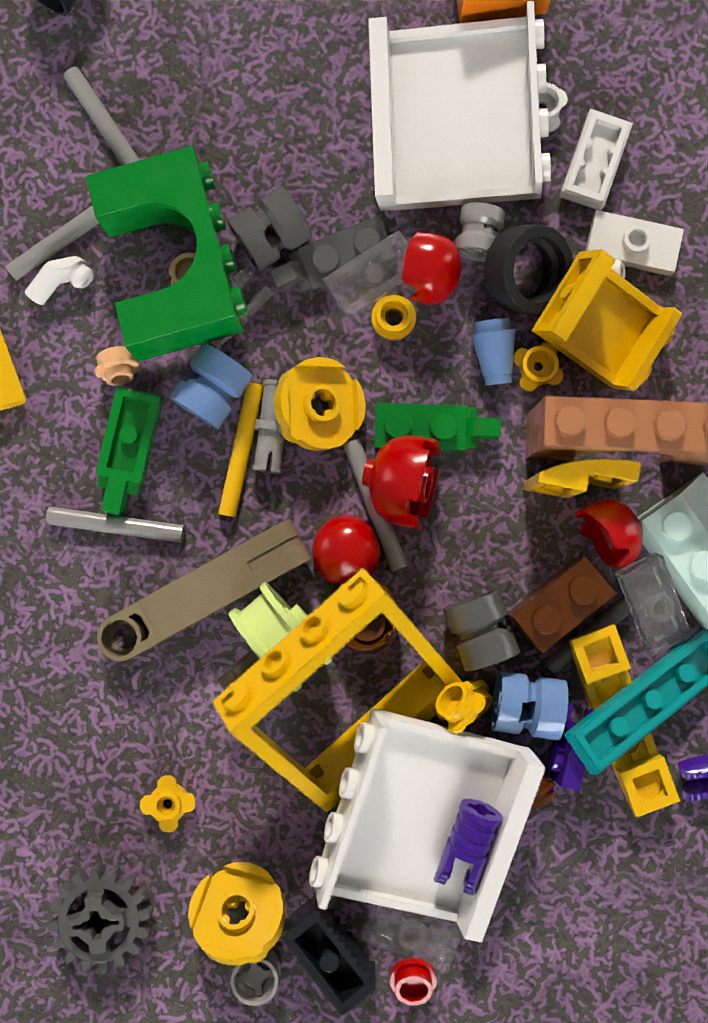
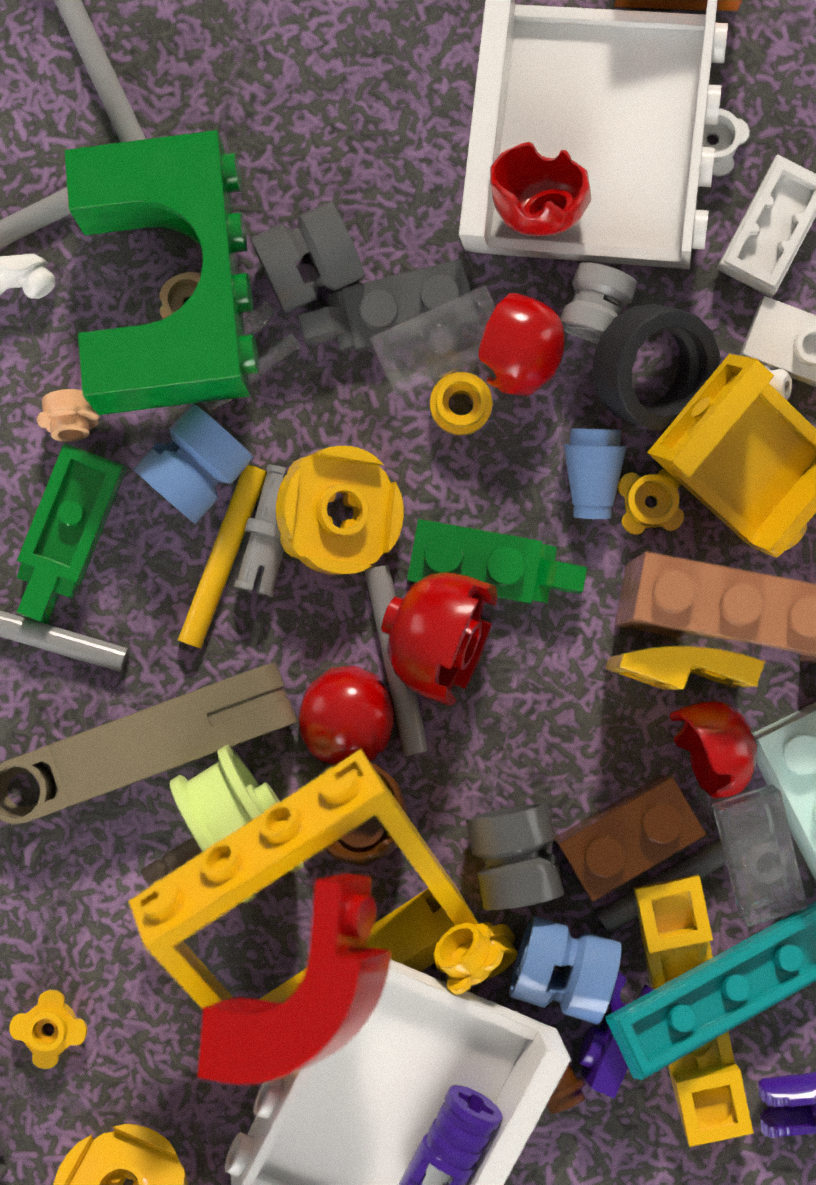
camera: 10 degrees right, 0 degrees up
(374, 744) = (341, 987): none -> red arch
(427, 159) = (538, 192): none -> red hair

